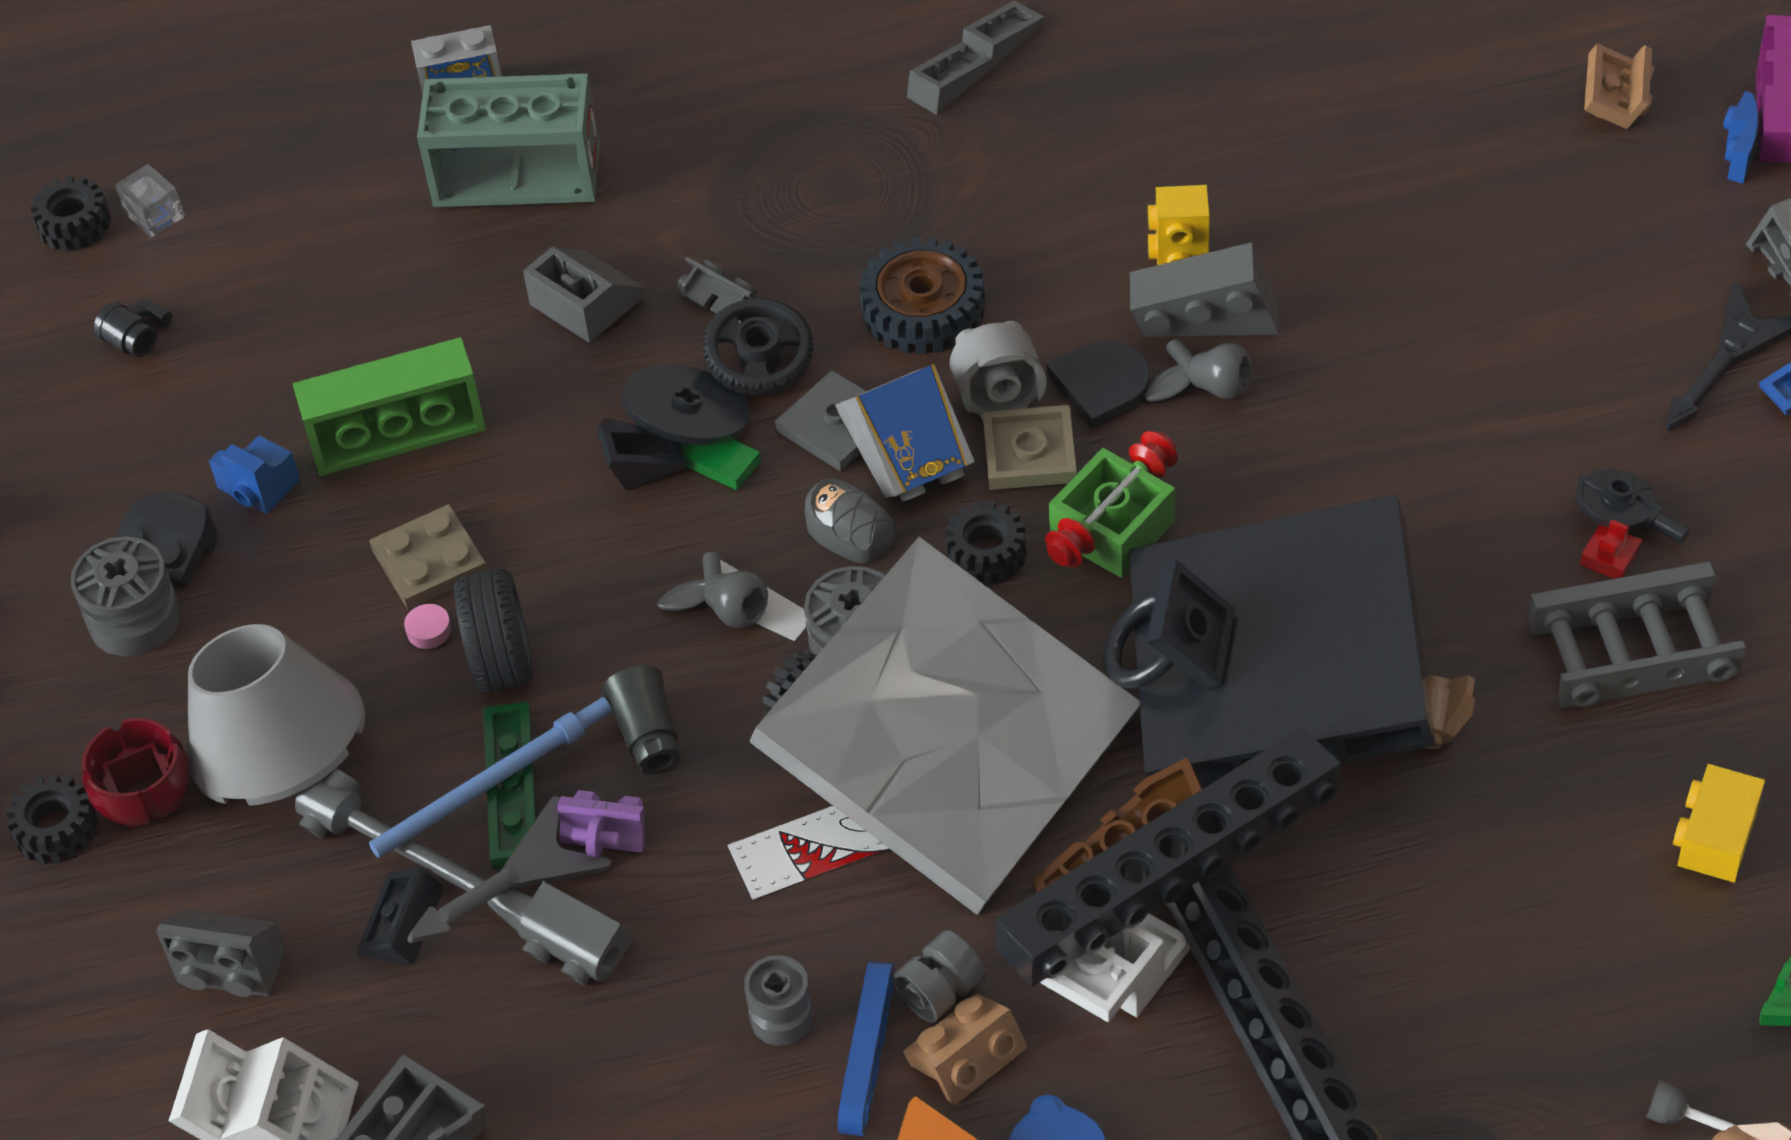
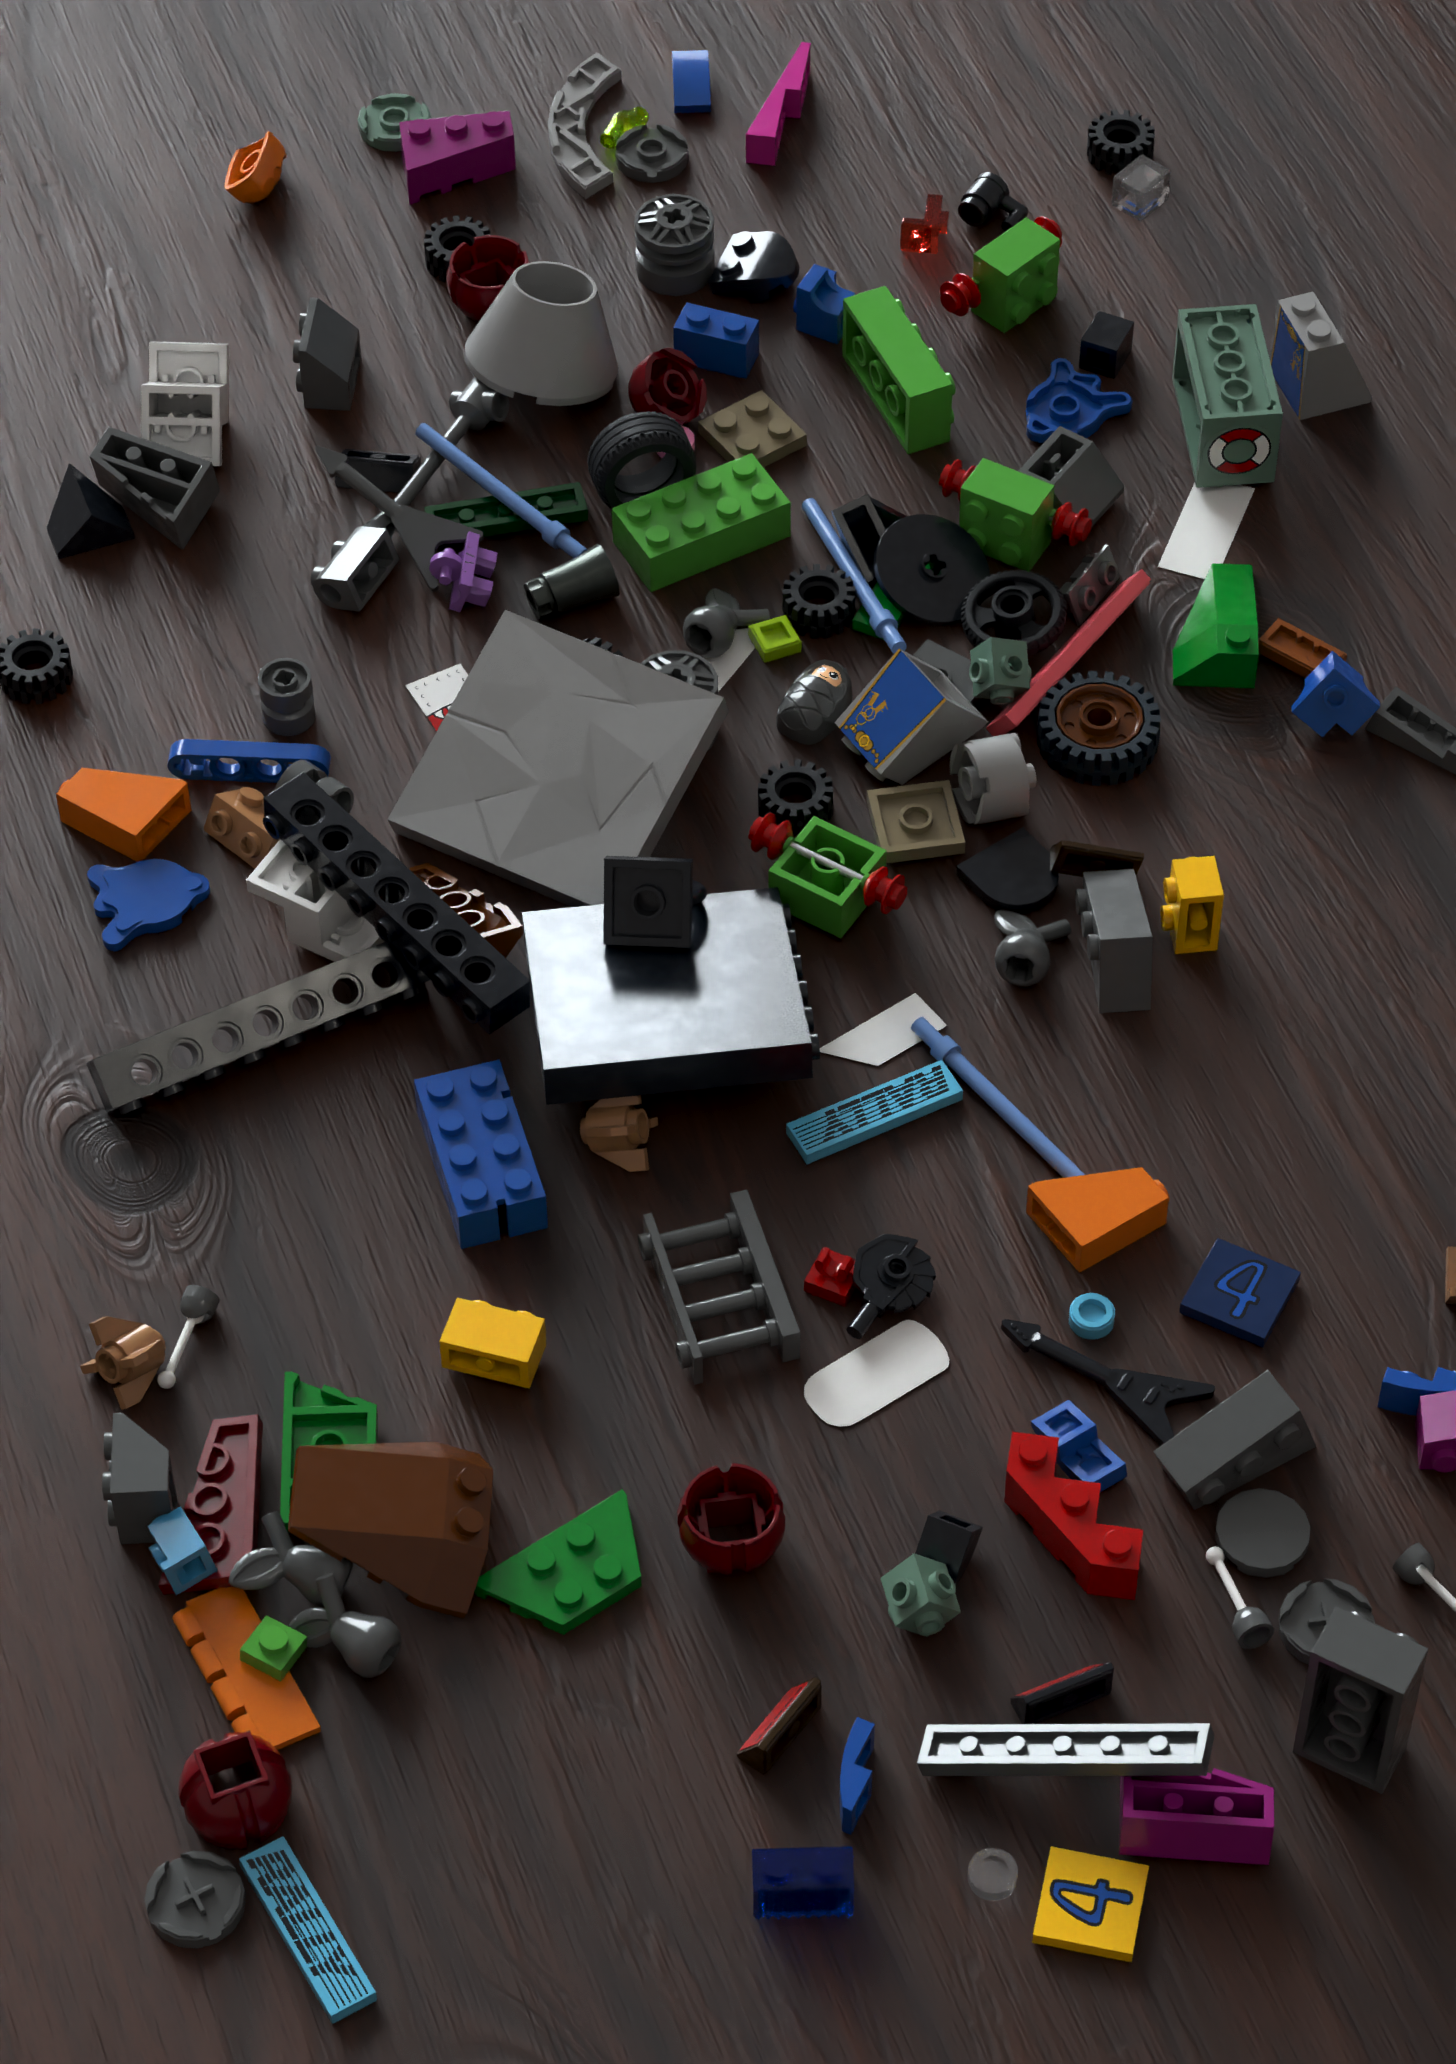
camera: 80 degrees right, 0 degrees up
(154, 376) = (924, 234): none -> clear red bracket
(266, 298) = (1009, 275): none -> bright green brick
(286, 571) = (717, 339): none -> blue brick
(365, 617) = (668, 386): none -> dark red cylinder
(380, 246) = (1106, 344): none -> black brick
(451, 292) = (1071, 402): none -> blue tile
(572, 599) = (701, 522): none -> bright green brick
(623, 330) = (1011, 512): none -> bright green brick
(651, 204) = (1205, 529): none -> white sticker
(698, 489) = (824, 585): none -> black tyre
(745, 551) = (774, 638): none -> lime tile
(755, 448) = (880, 619): none -> medium blue bar
(809, 192) = (1220, 633): none -> green wedge
(824, 310) = (1069, 653): none -> coral tile
(841, 141) = (1294, 648): none -> dark orange plate
(852, 351) = (1000, 670): none -> sand green brick
(915, 114) = (1335, 695): none -> blue brick
(1101, 309) = (1076, 858): none -> dark brown slope
(1290, 485) = (885, 1033): none -> white sticker
(1334, 444) = (949, 1051): none -> medium blue bar
(1386, 474) = (874, 1111): none -> medium azure tile
(1466, 830) = (480, 1153): none -> blue piece
(1545, 342) = (1097, 1212): none -> orange slope
(1625, 257) = (1240, 1292): none -> dark blue tile
(1653, 364) = (1091, 1316): none -> medium azure tile
(1723, 531) = (876, 1374): none -> white sticker

